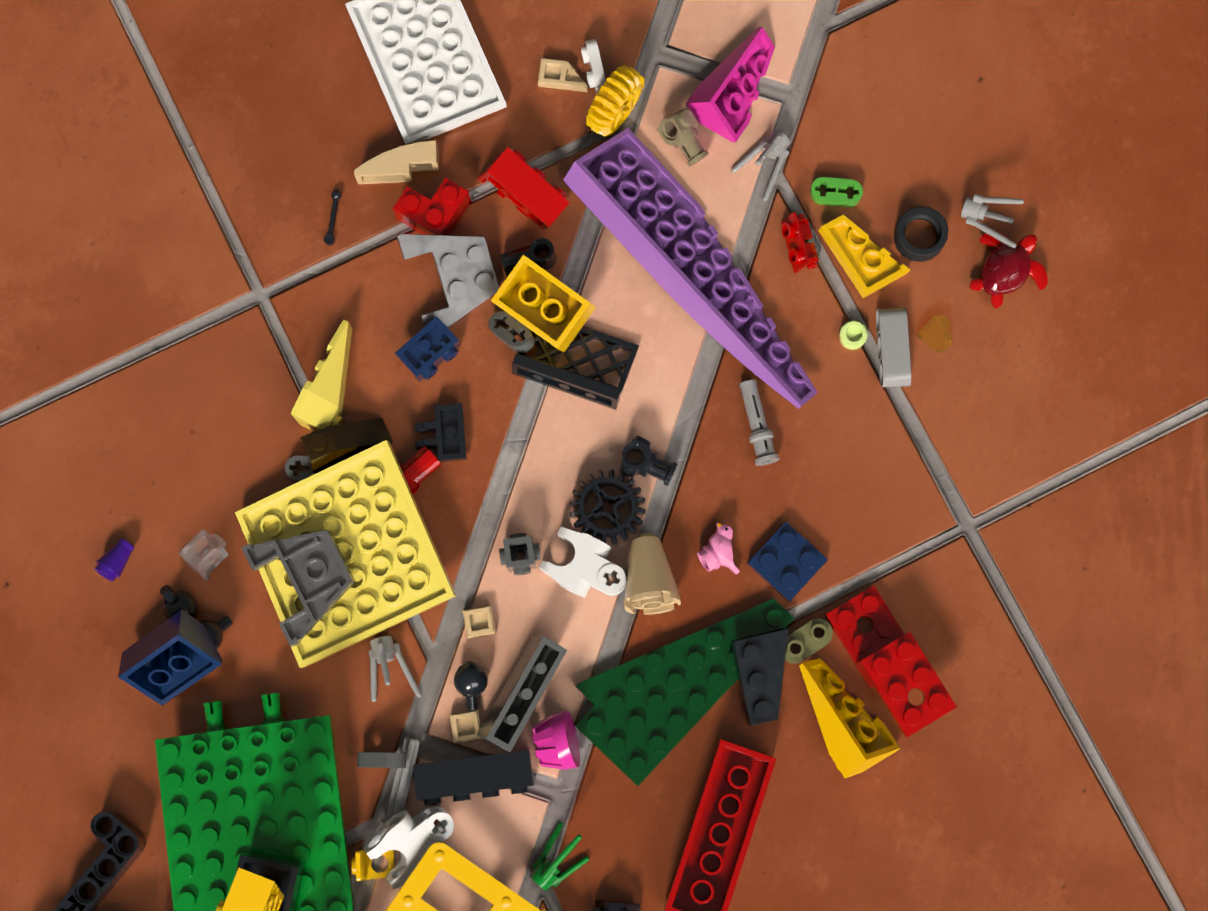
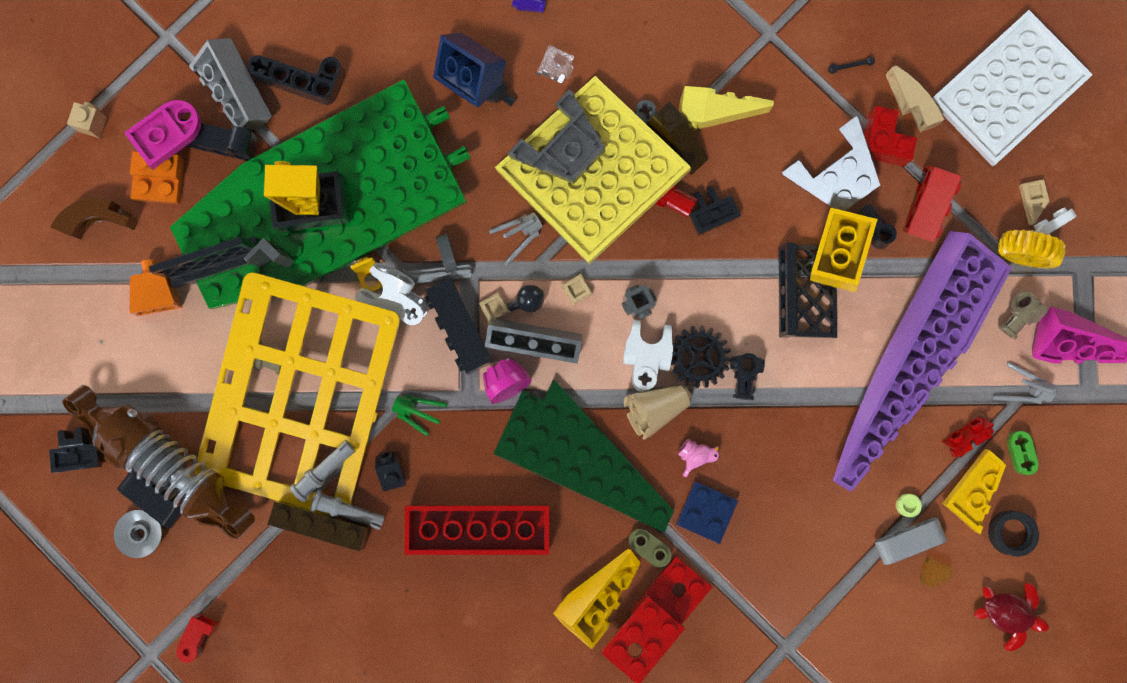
camera: 65 degrees right, 5 degrees up
(178, 601) = (513, 59): black piece -> none
(428, 350) = (773, 175): dark blue bracket -> none
(507, 336) = (807, 232): dark grey beam -> none
(760, 435) = (799, 458): light grey pin -> none
(760, 673) = (612, 520): black wing -> none
(975, 210) = (1051, 572): light grey plant -> none

